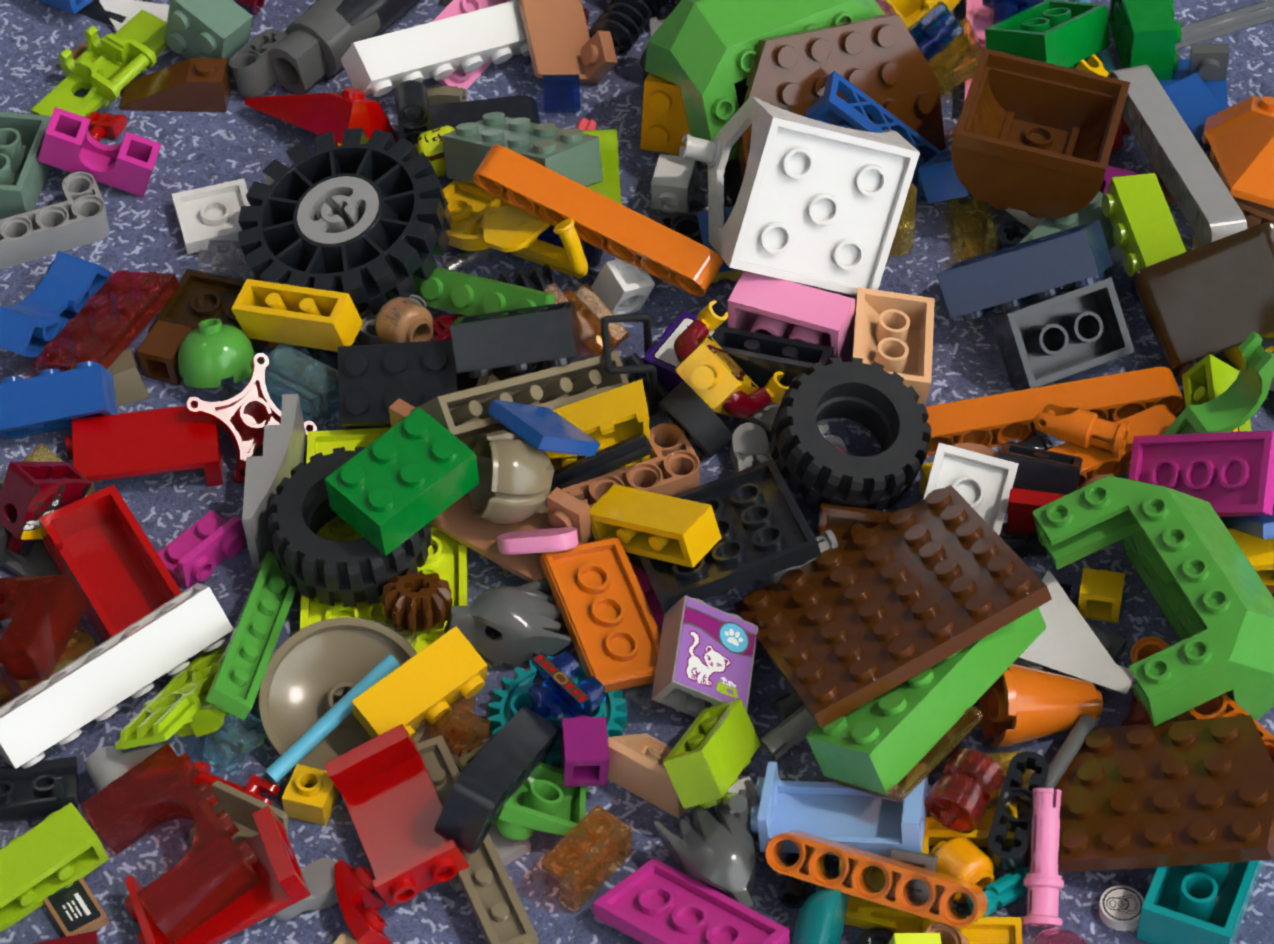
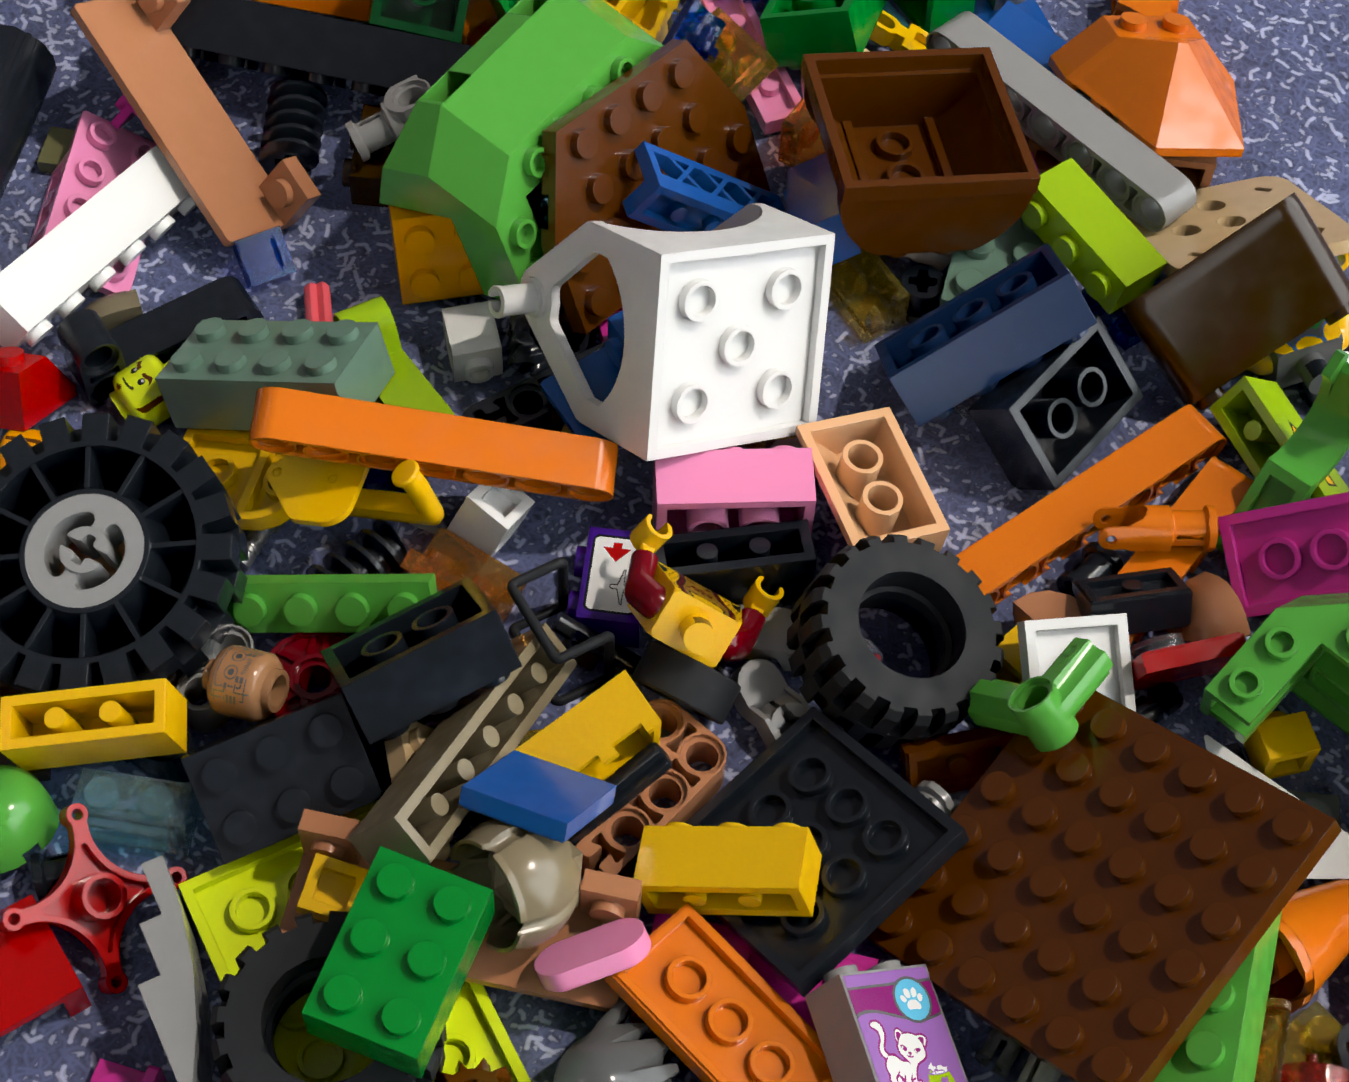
camera: 30 degrees left, 10 degrees up
(917, 486) = (1044, 704): none -> bright green piece

